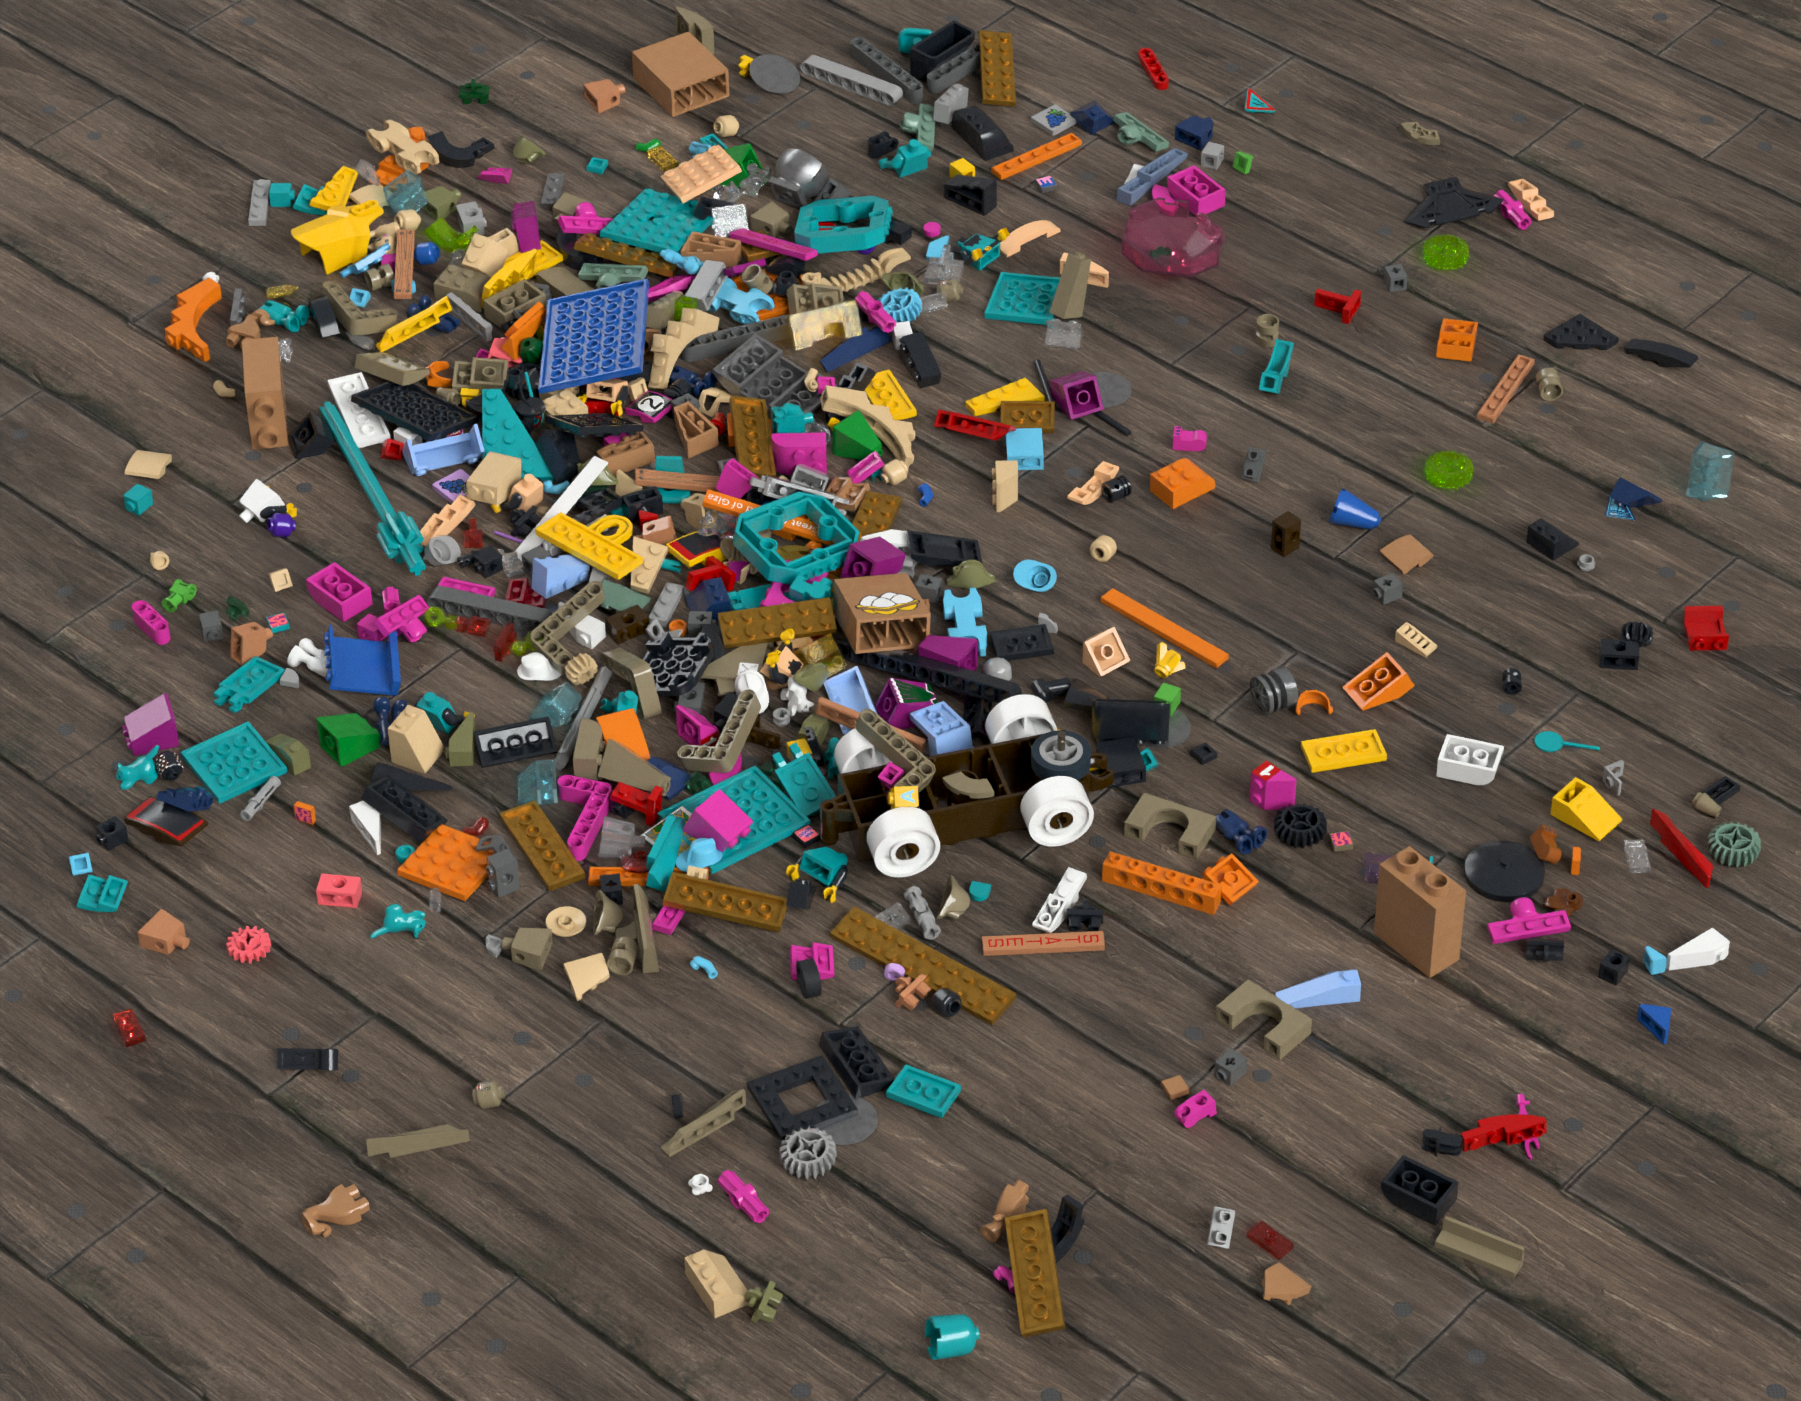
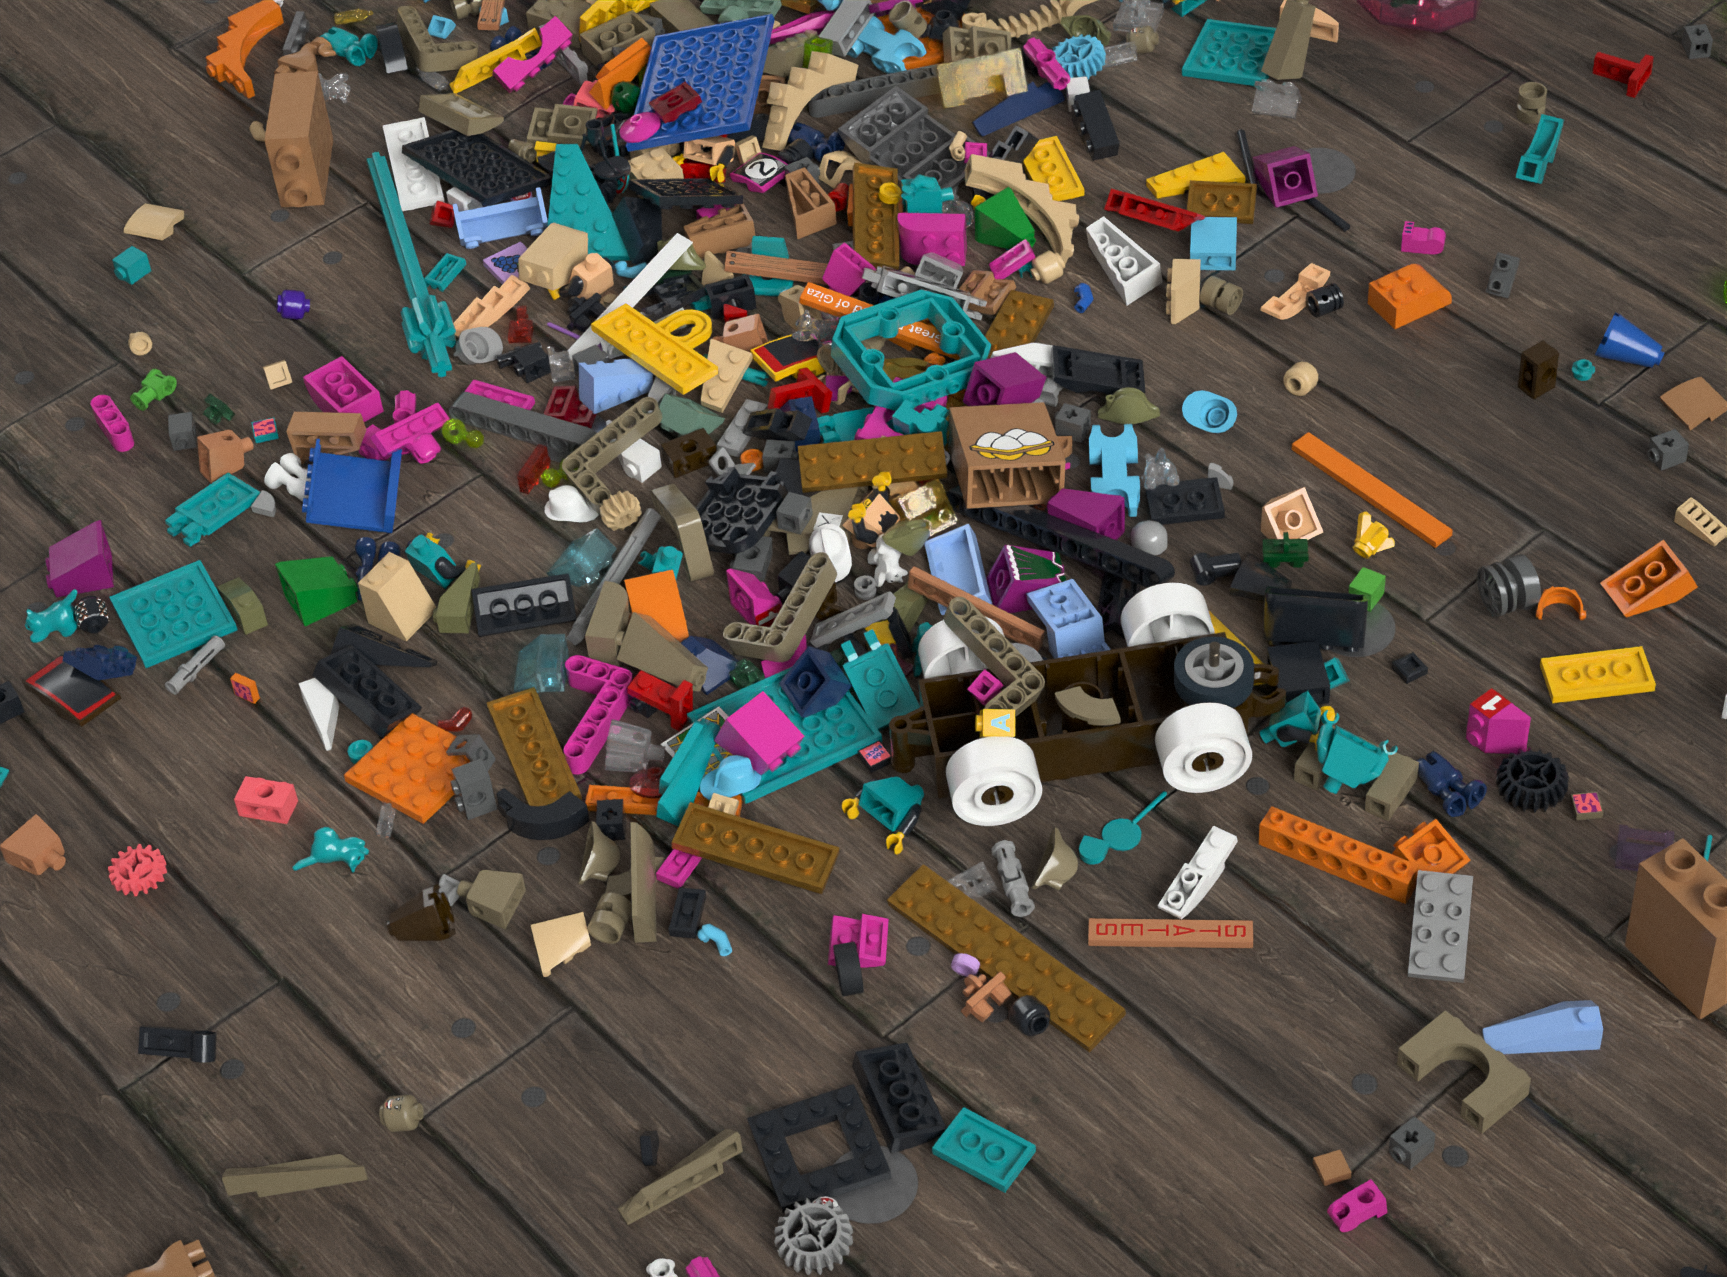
camera: 10 degrees right, 5 degrees up
(262, 503) = (274, 274): white torso -> none
(311, 437) = (350, 195): black slope -> none
(345, 620) = (337, 432): none -> medium nougat wedge
(404, 496) = (447, 274): none -> teal tile
(431, 333) = (513, 72): none -> dark pink arch
(433, 379) = (509, 130): orange helmet -> none
(474, 626) = (500, 446): clear red plate -> none
(478, 963) = (423, 917): none -> dark brown cone
(548, 373) = (640, 127): none -> dark pink dish
(557, 894) = (545, 821): none -> black arch
(566, 921) = (541, 855): tan dish -> none
(577, 352) = (675, 102): none -> dark red plate
(680, 950) = (687, 913): none -> black plate
(697, 599) = (778, 425): none -> black slope
(721, 663) = (794, 513): none -> dark grey brick
(754, 784) = (814, 682): none -> dark blue slope
(762, 418) = (889, 193): none -> yellow tile
(778, 738) = (853, 619): none -> light grey plate
(801, 894) = (856, 842): black slope -> none
(955, 465) = (1124, 262): none -> white wedge
(1001, 620) = (1159, 471): none -> clear animal
(1003, 879) = (1124, 833): none -> teal piece
(1035, 488) = (1222, 295): none -> dark tan wheel
(1084, 914) = (1232, 894): black hips -> none
(1103, 674) = (1285, 550): none -> dark green hips
(1123, 793) = (1296, 722): none -> teal torso
(1164, 814) = (1348, 757): none -> teal torso
(1240, 925) = (1440, 926): none -> light grey plate
(1320, 533) = (1583, 370): none -> teal plate

